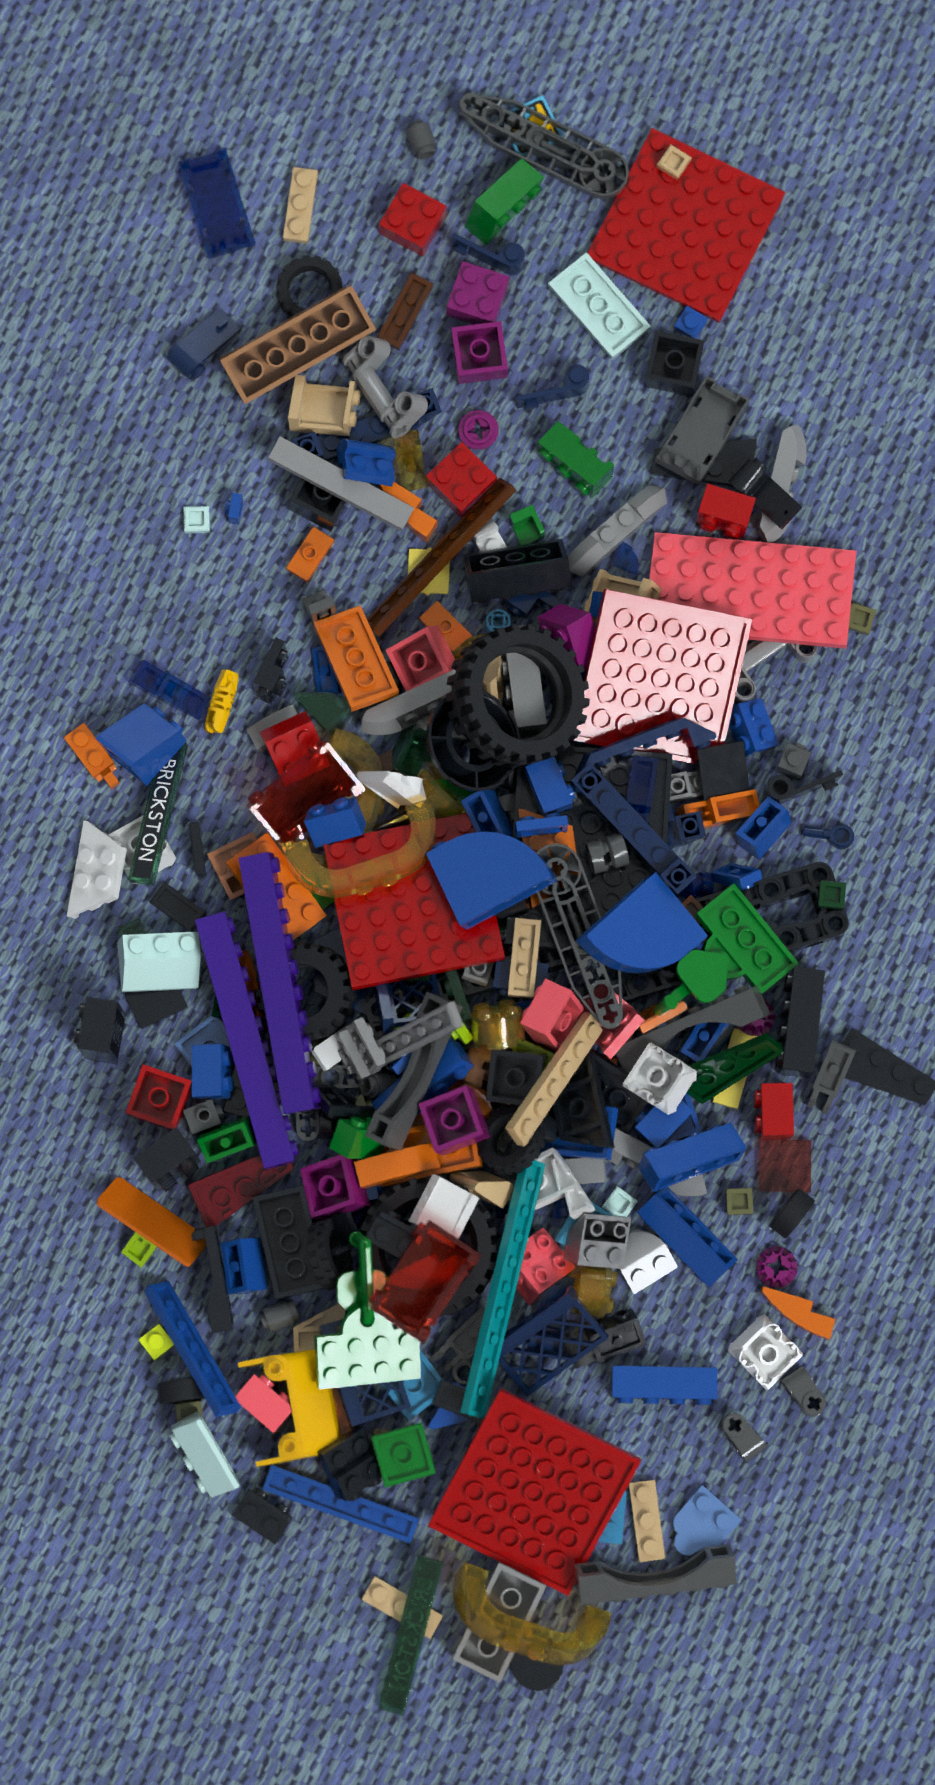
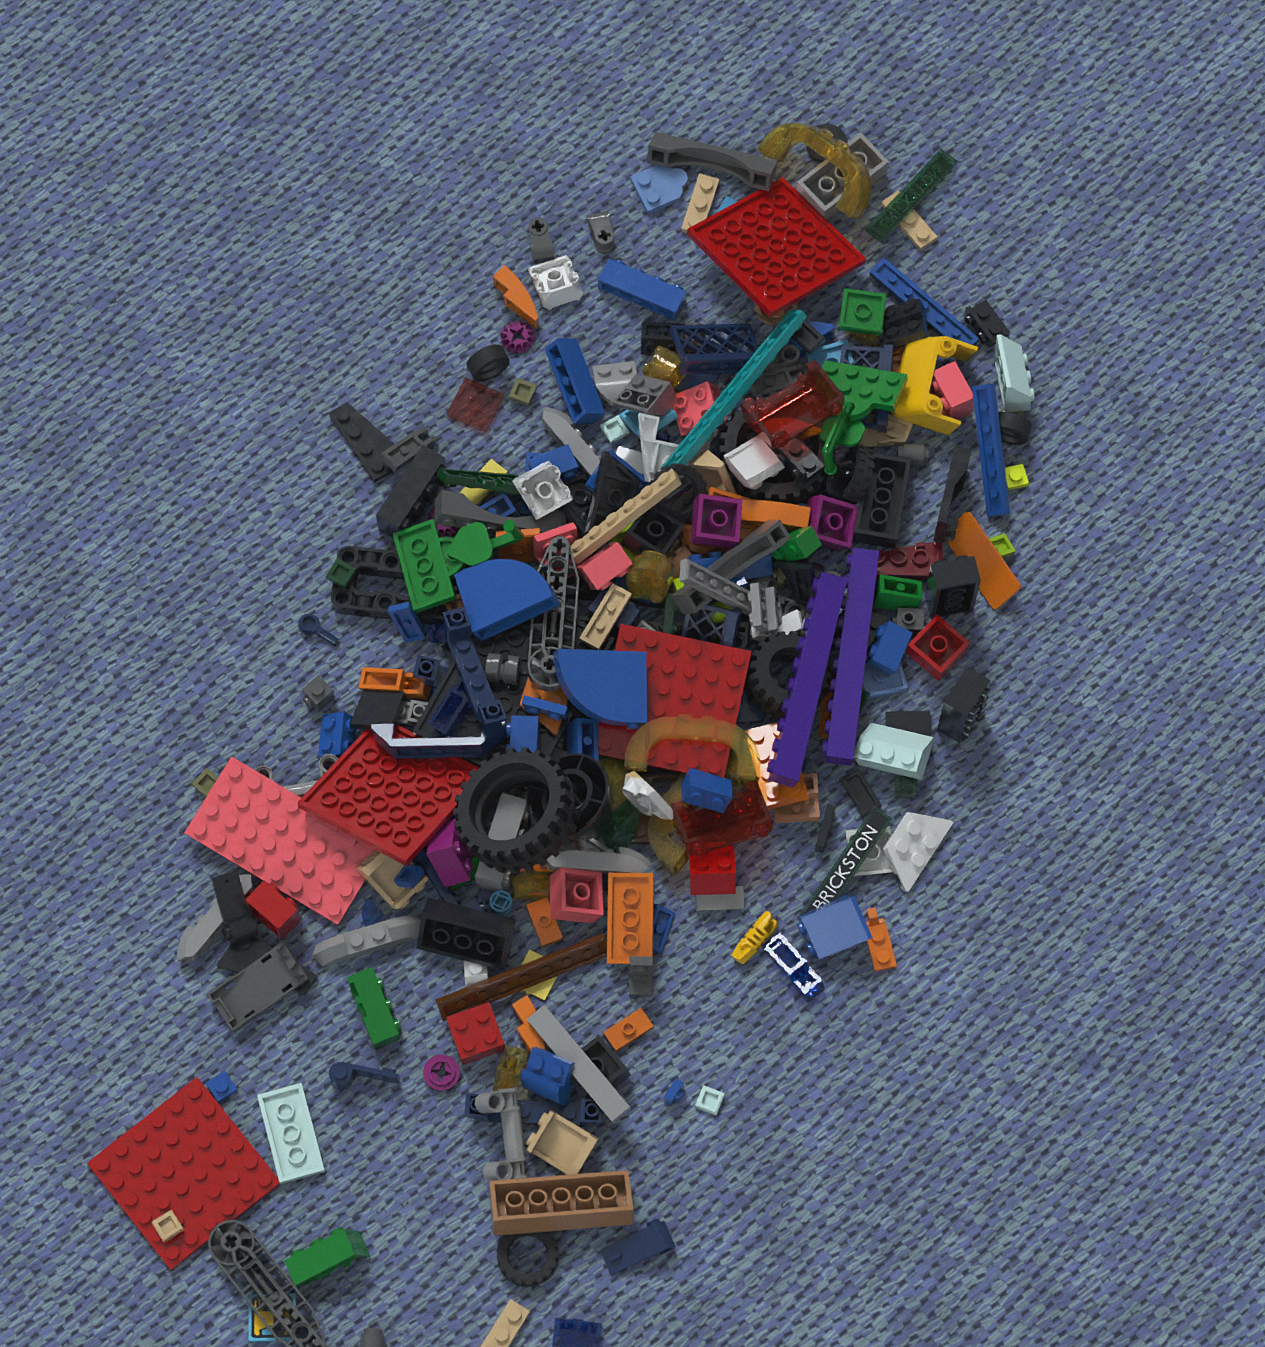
camera: 155 degrees left, 10 degrees down
(244, 1266) = (924, 498): blue brick -> none
(271, 678) = (707, 933): black plate -> none
(325, 709) = (672, 895): clear green slope -> none
(405, 311) = (455, 1200): reddish brown plate -> none
(412, 219) = (412, 1275): red brick -> none
(477, 294) = (388, 1184): magenta brick -> none
(479, 352) = (410, 1132): magenta brick -> none
(509, 260) = (347, 1205): dark blue door -> none
(527, 525) = (439, 974): green panel -> none
(674, 363) = (253, 1052): black brick -> none
(691, 1156) = (545, 429): blue brick -> none
(763, 828) = (367, 651): blue brick -> none
(775, 1111) = (464, 438): red brick -> none
(782, 789) = (338, 670): black door -> none

